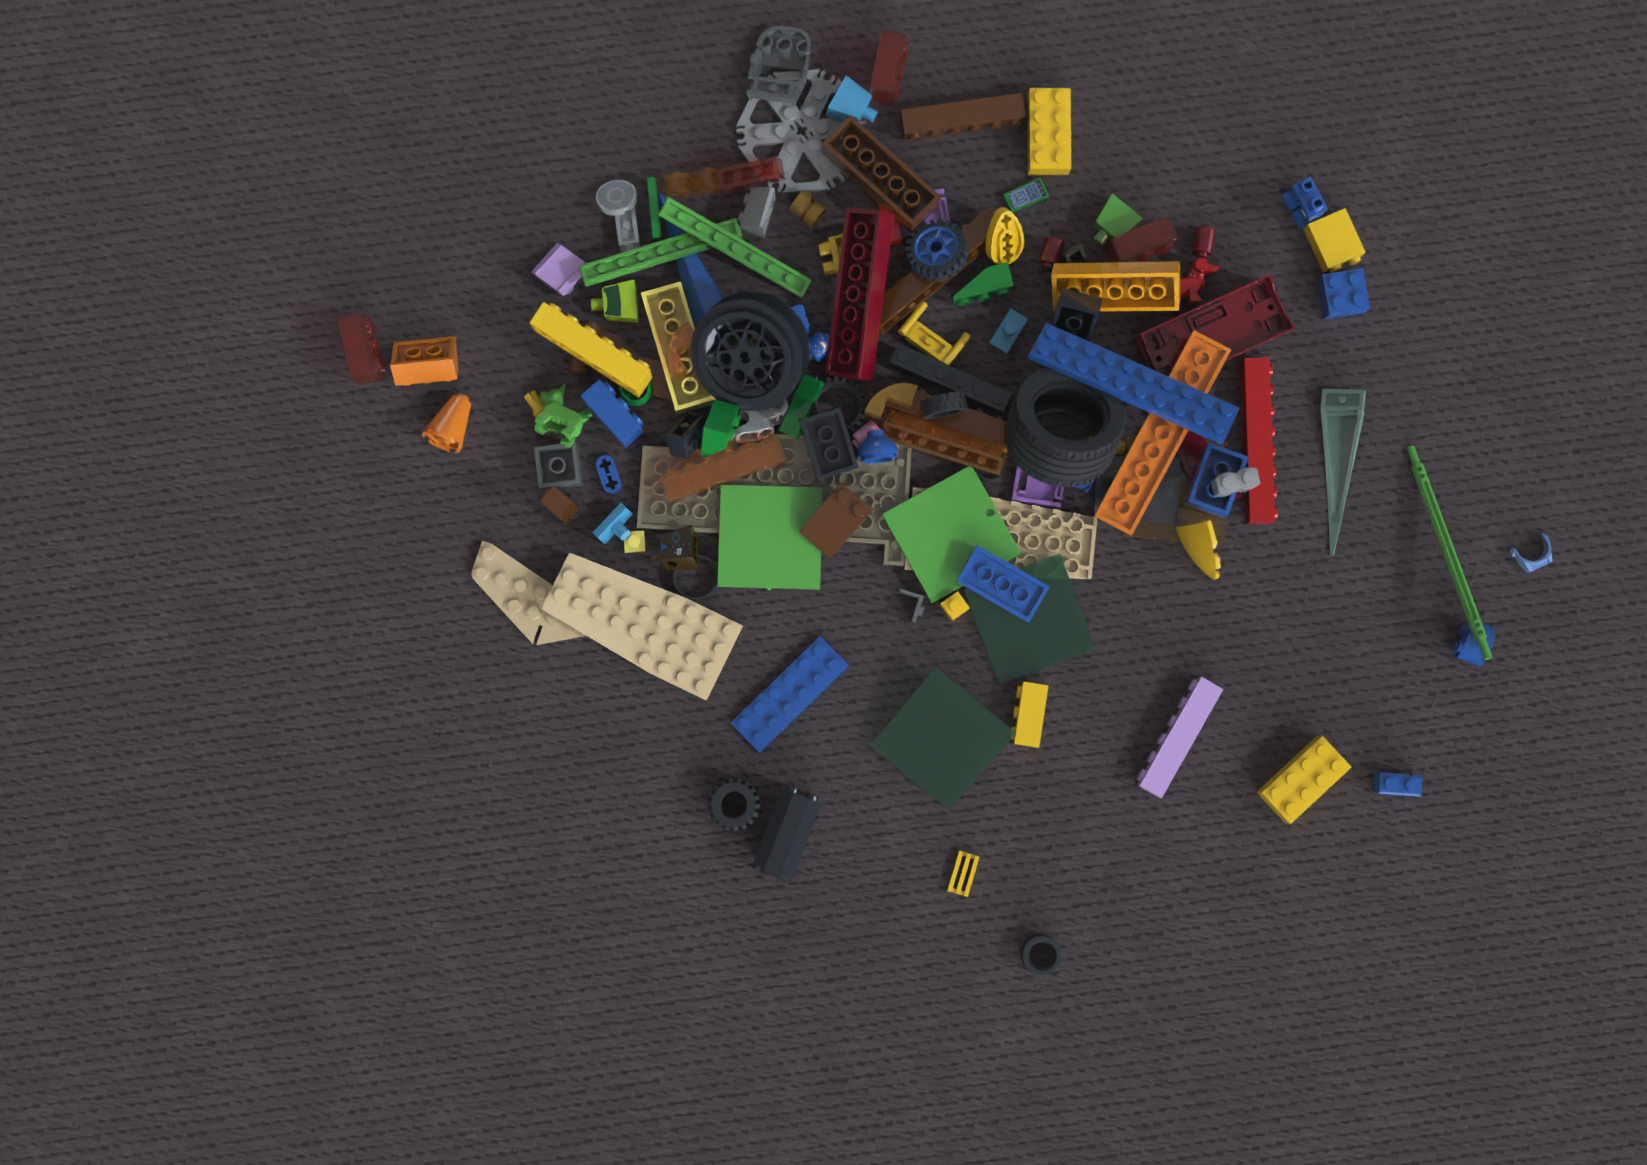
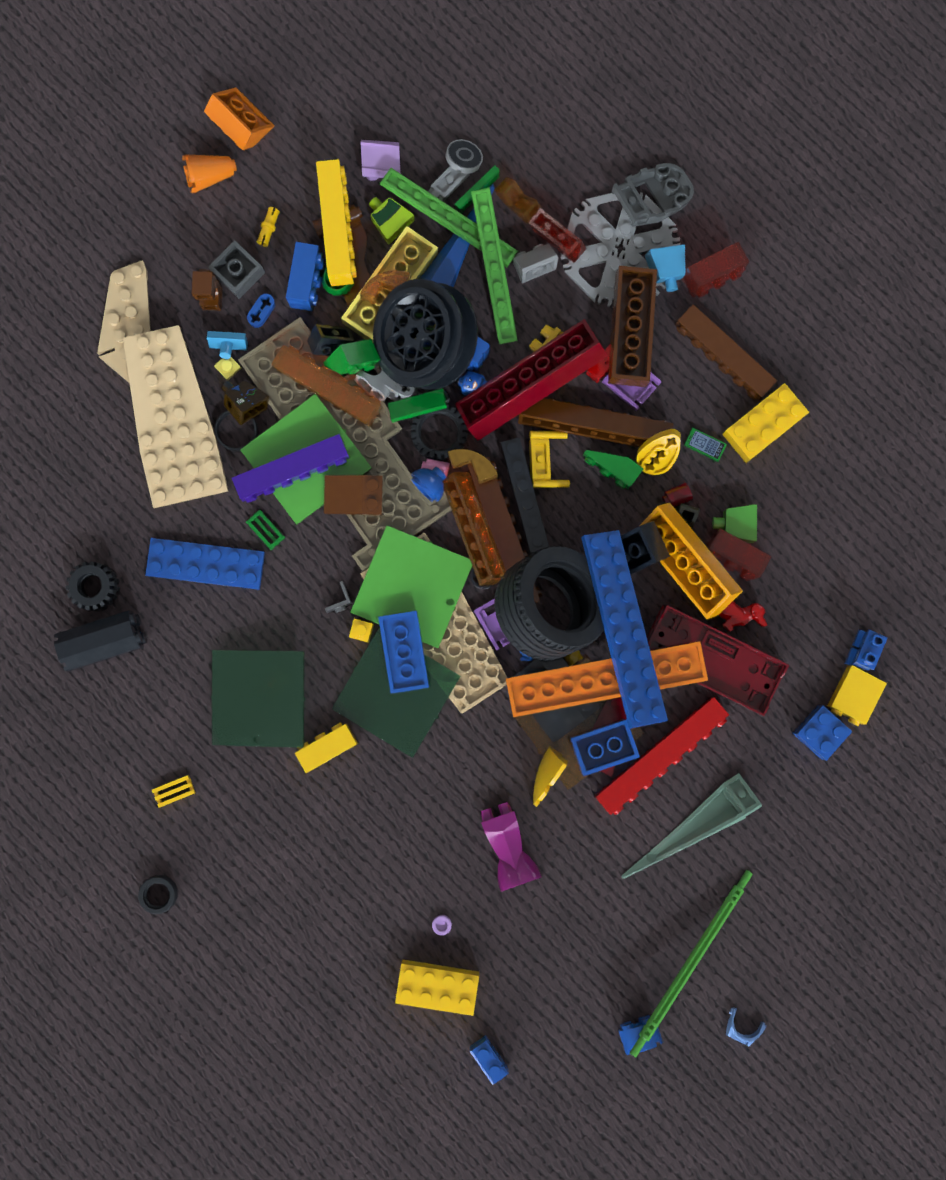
camera: 55 degrees right, 0 degrees up
(361, 348) = (210, 65): clear red brick -> none
(559, 418) = (269, 239): bright green animal -> none
(770, 554) = (290, 468): none -> dark purple brick
(801, 620) = (275, 541): none -> green tile
(810, 210) = (567, 300): pearl gold wheel -> none
(828, 443) = (404, 444): black brick -> none
(935, 236) = (613, 398): wheel -> none
(943, 405) = (497, 504): black tyre -> none
(1008, 331) = (595, 510): dark azure tile -> none
(1179, 737) = (396, 870): lavender brick -> none
(1203, 241) = (776, 600): dark red brick -> none
(1224, 625) = (504, 836): none -> magenta hips
(1235, 482) = (607, 758): light grey brick -> none
(1253, 735) = (441, 924): none -> lavender tile

